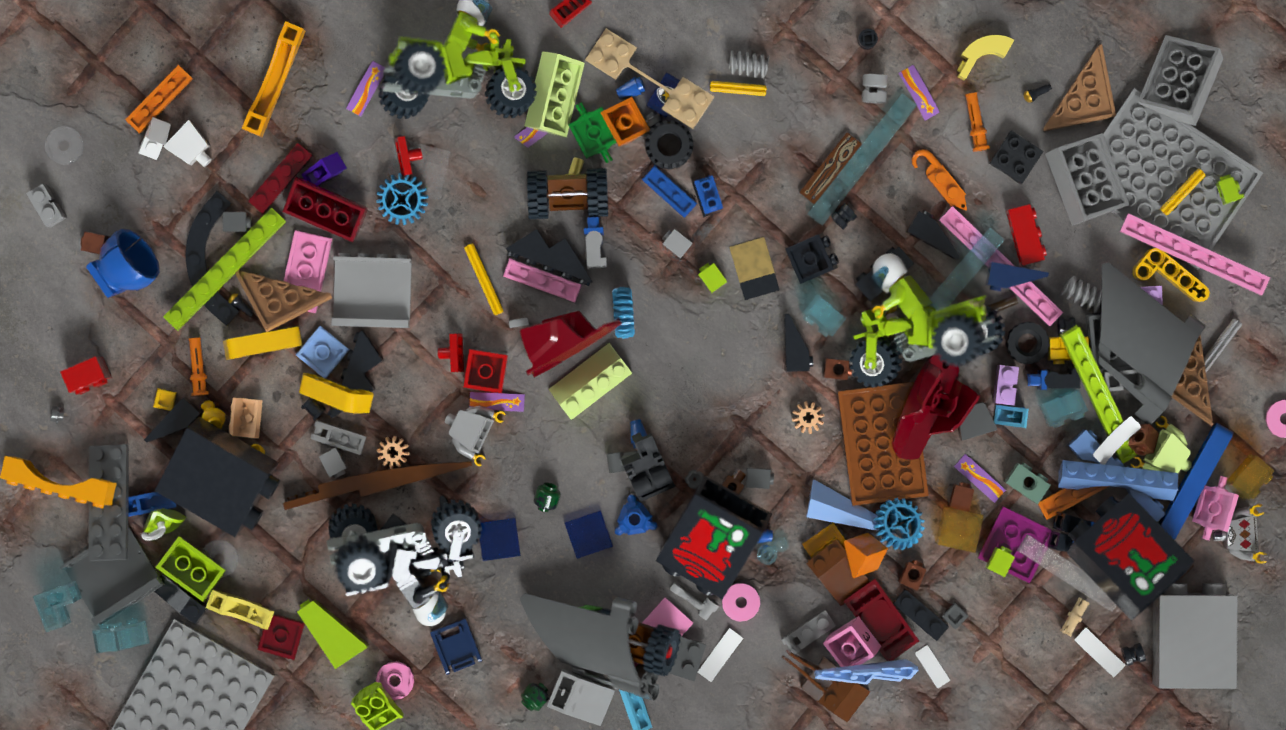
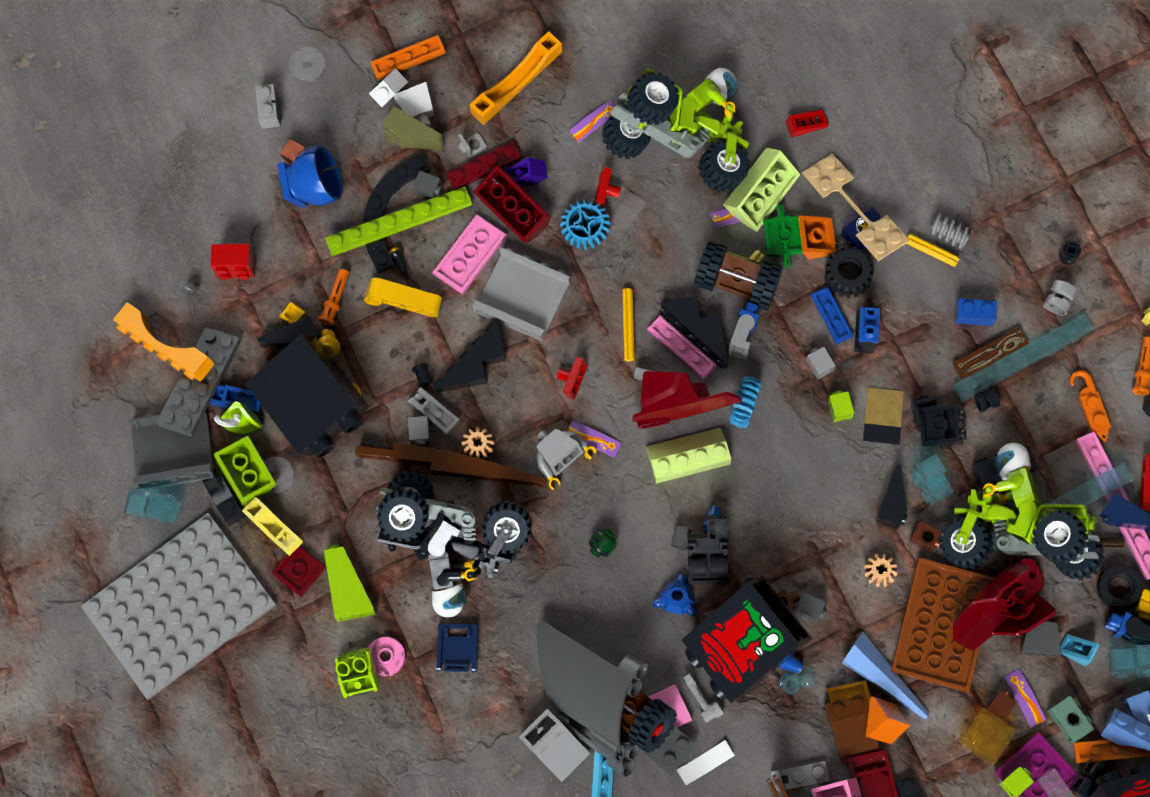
camera: 30 degrees right, 15 degrees down
(52, 605) = (105, 450): clear light blue brick -> none
(192, 178) = (410, 132): none -> olive slope
(245, 417) = (357, 358): light nougat bracket -> none
(254, 167) = (465, 148): none -> light grey bracket
(278, 300) = (435, 266): medium nougat tile -> none
(322, 352) = (453, 330): light blue tile -> none
(335, 394) = (450, 367): yellow beam -> none
(485, 371) = (595, 404): red brick -> none
(499, 539) = (541, 564): clear blue tile -> none
(534, 696) = (510, 726): dark green head -> none
(588, 534) = (627, 595): clear blue tile -> none
(631, 88) = (835, 211): blue cone -> none
(746, 612) = (752, 709): bright pink tile -> none
(783, 242) = (921, 401): none -> black bracket
(801, 135) = (975, 312): none -> blue brick
(891, 508) = (926, 712): dark azure gear -> none
(912, 583) = (916, 765): copper brick -> none
(919, 92) = (1100, 320): medium lavender sticker -> none
(930, 232) = (1063, 447): black slope -> none
(1003, 390) = (1084, 616): lavender piece -> none

